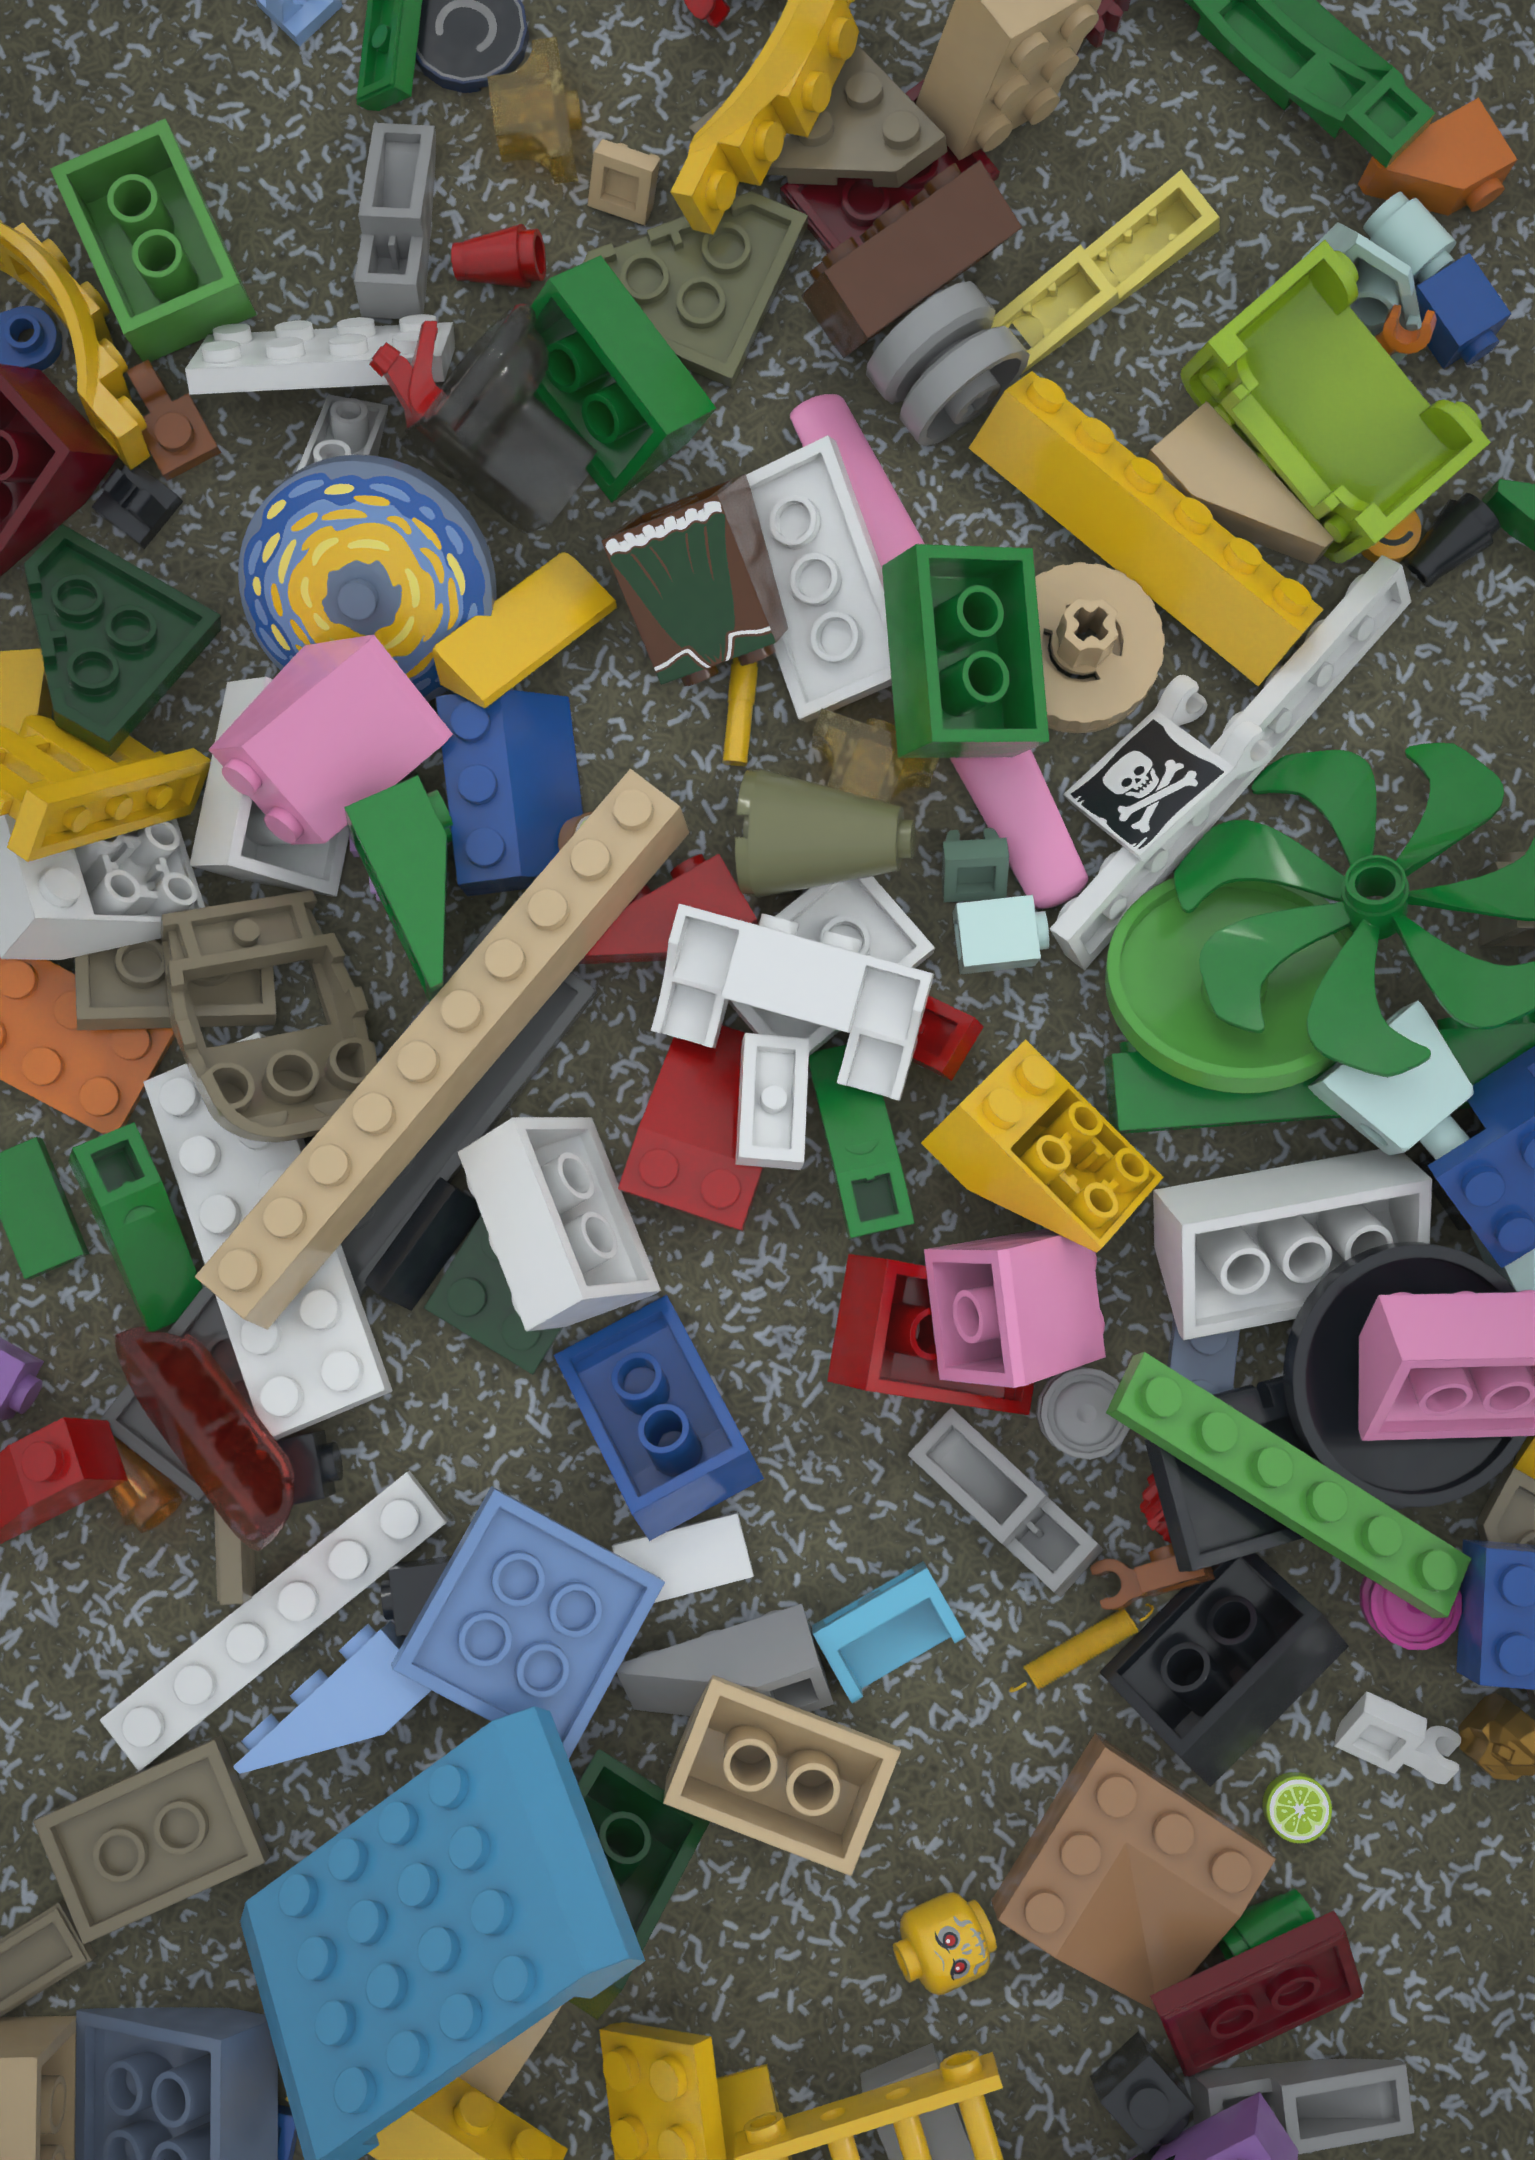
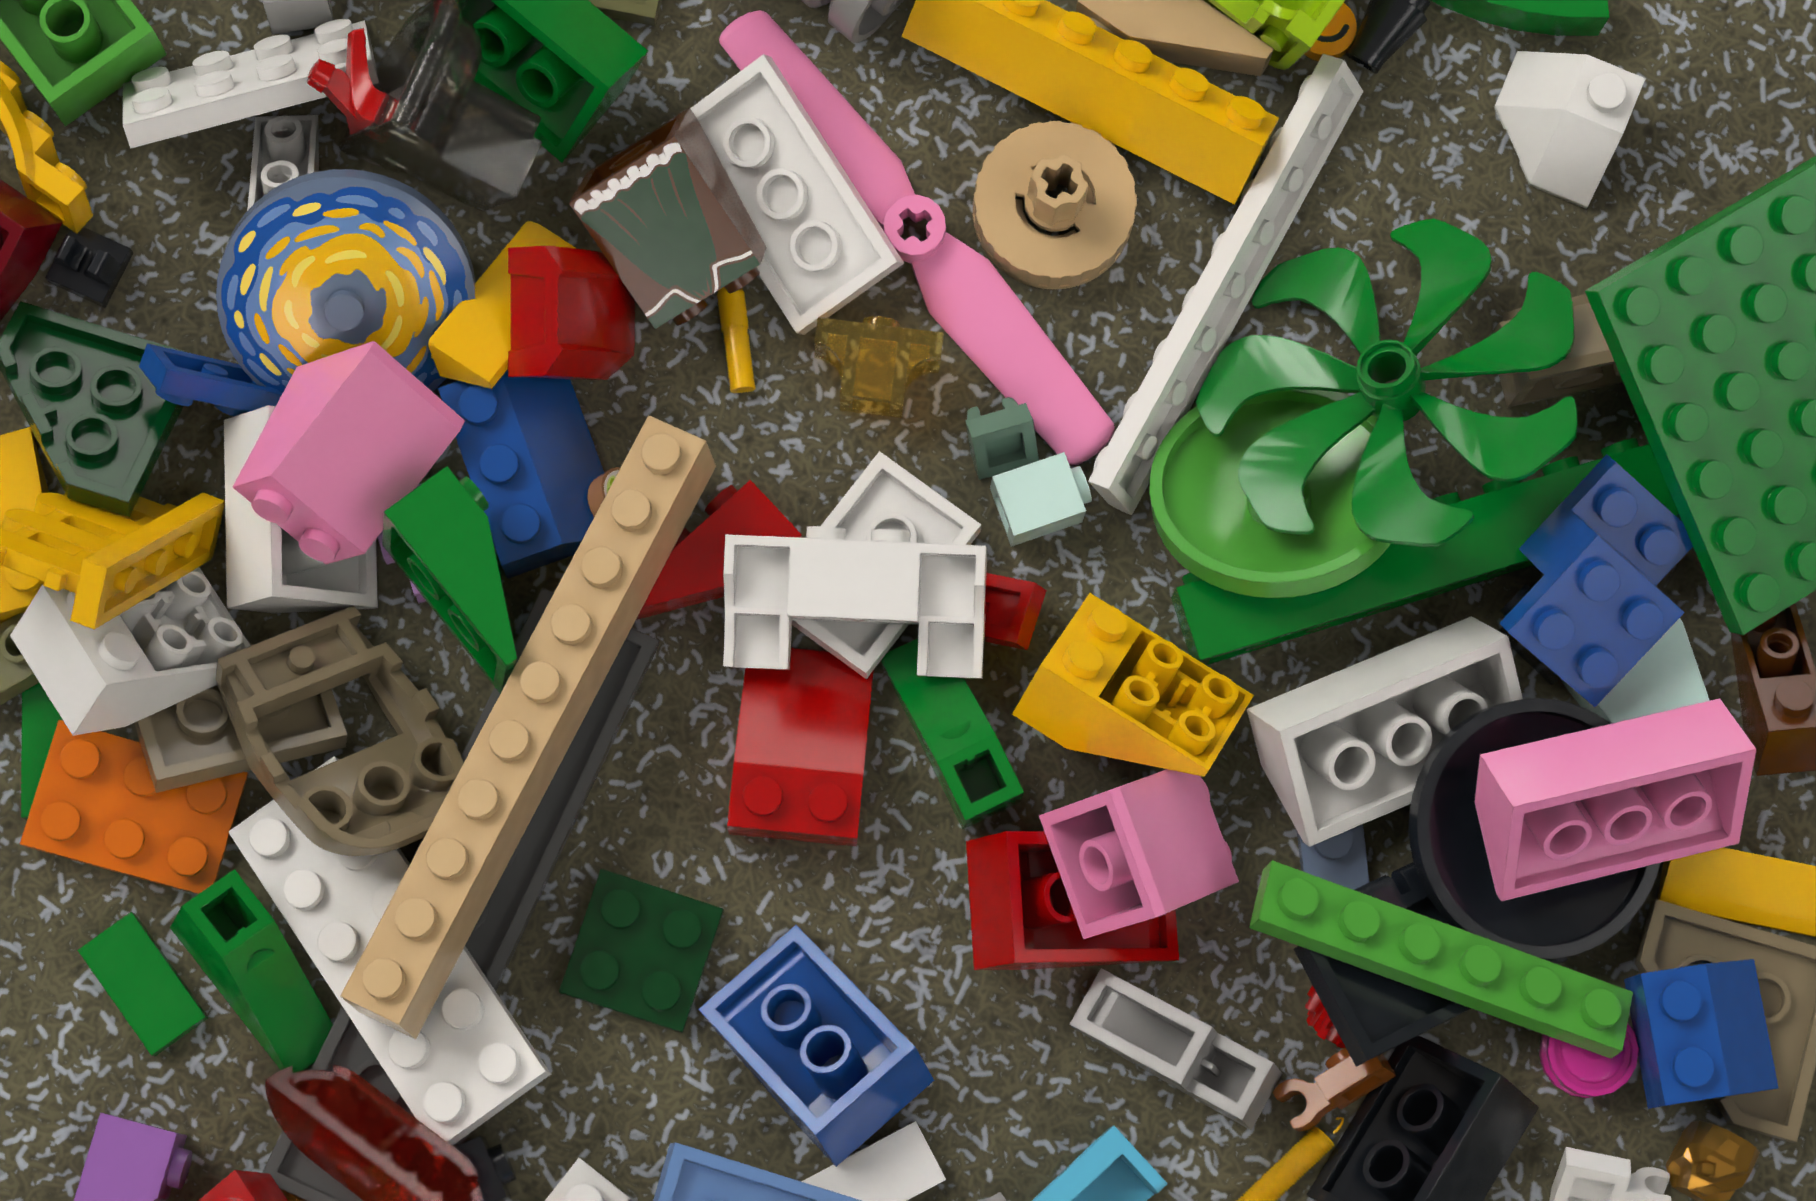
camera: 25 degrees left, 5 degrees down
(174, 428) = (113, 182): dark orange plate -> none
(198, 632) = (190, 377): none -> blue plate
(424, 1244) = (546, 927): black tile -> none
(557, 1220) = (673, 872): white slope -> none
(578, 651) = (568, 314): none -> red slope
(772, 1101) = (859, 706): white plate -> none
(814, 835) = (840, 441): olive cone -> none
(965, 651) = (945, 234): green brick -> none
(1074, 1413) = (1224, 947): light grey wheel -> none
(1163, 774) = (1161, 308): flag -> none
(1406, 1106) = (1465, 569): light aqua torso -> none

